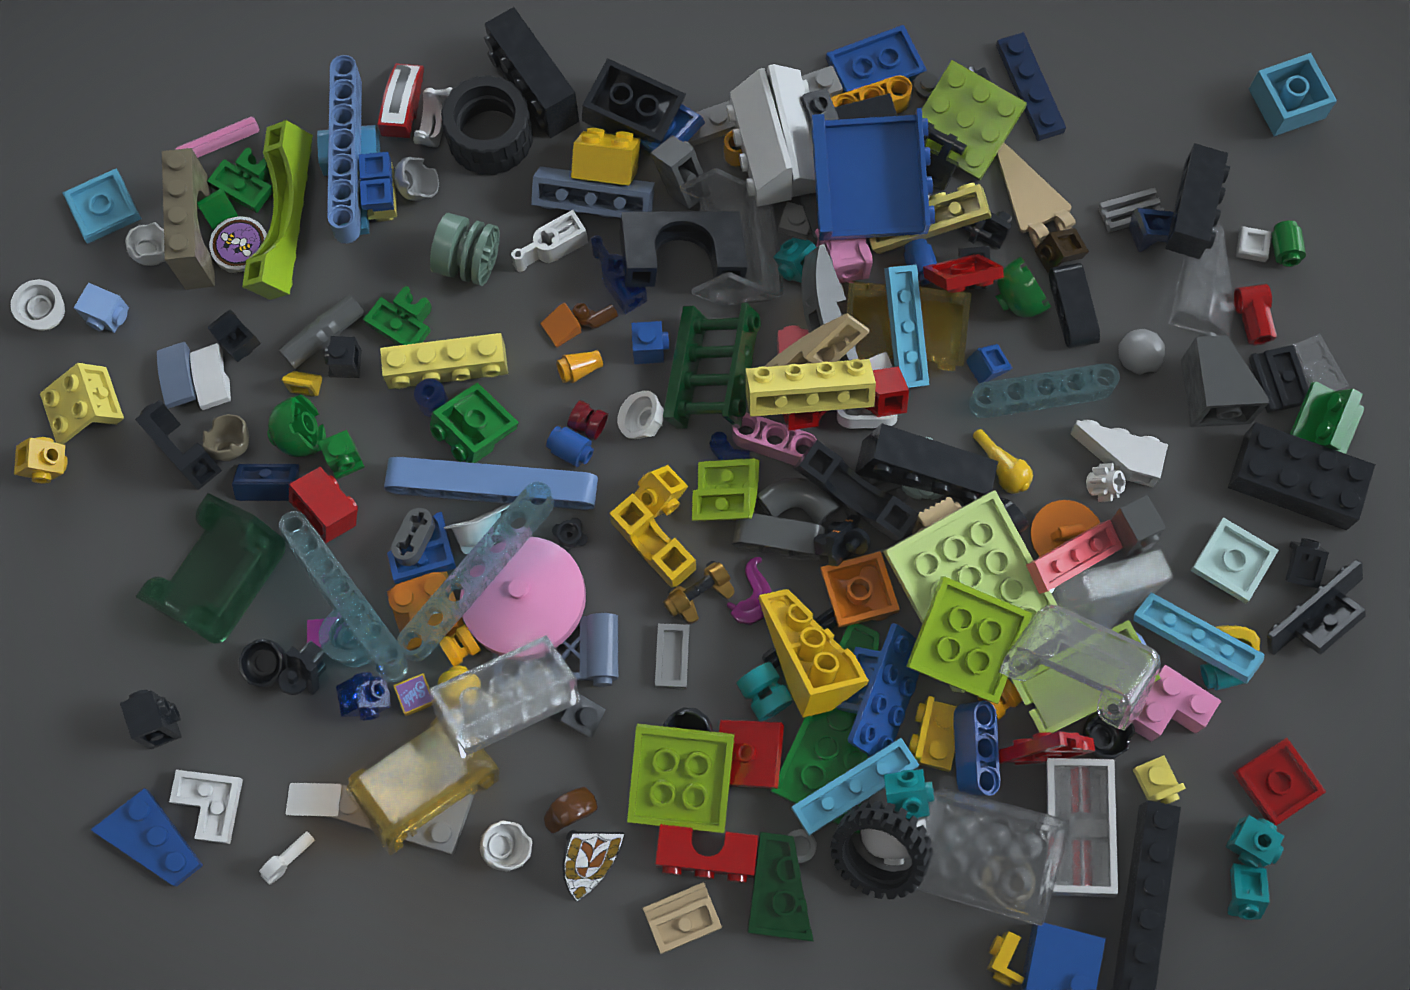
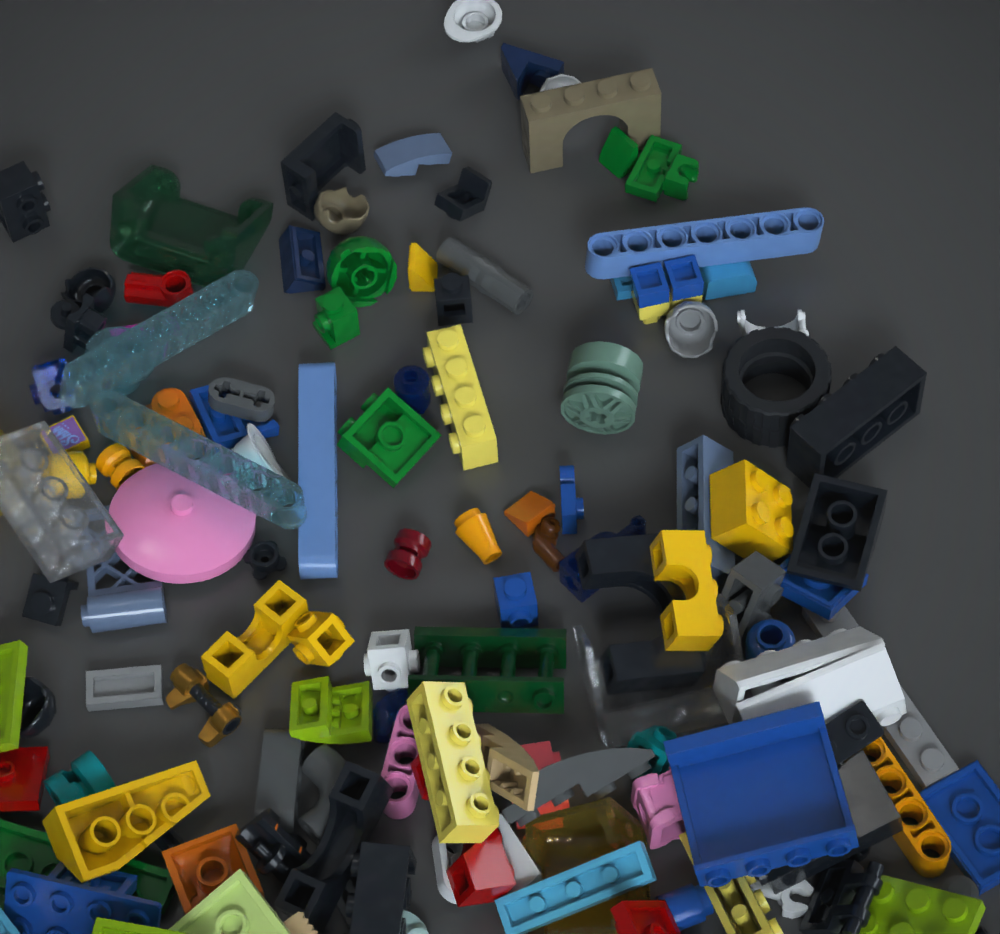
camera: 85 degrees right, 15 degrees down
(40, 459) = (292, 46): yellow brick -> none
(78, 399) = (373, 82): light yellow bracket -> none
(101, 205) = (608, 51): medium azure tile -> none
(101, 308) = (480, 74): light blue brick -> none
(104, 268) = (527, 67): none -> dark blue slope
(209, 378) = (408, 184): white slope -> none
(222, 137) = (710, 138): bright pink axle -> none
(235, 242) = (582, 183): tile -> none
(275, 605) = (157, 289): none -> red piece
(287, 157) = (552, 210): lime arch -> none
(323, 504) = (271, 310): red brick -> none
(400, 100) = (786, 293): slope -> none
(401, 320) = (510, 347): green plate -> none
(558, 292) = (571, 507): none -> blue plate
(562, 236) = (637, 483): white piece -> none
(570, 446) = (372, 540): blue brick -> none
(640, 415) = (417, 609): white piece -> none
(688, 439) = (390, 659): none -> white brick
(700, 201) = (686, 561): none -> yellow arch
(720, 158) = (768, 635): none -> blue head
(750, 610) = (215, 773): magenta piece -> none

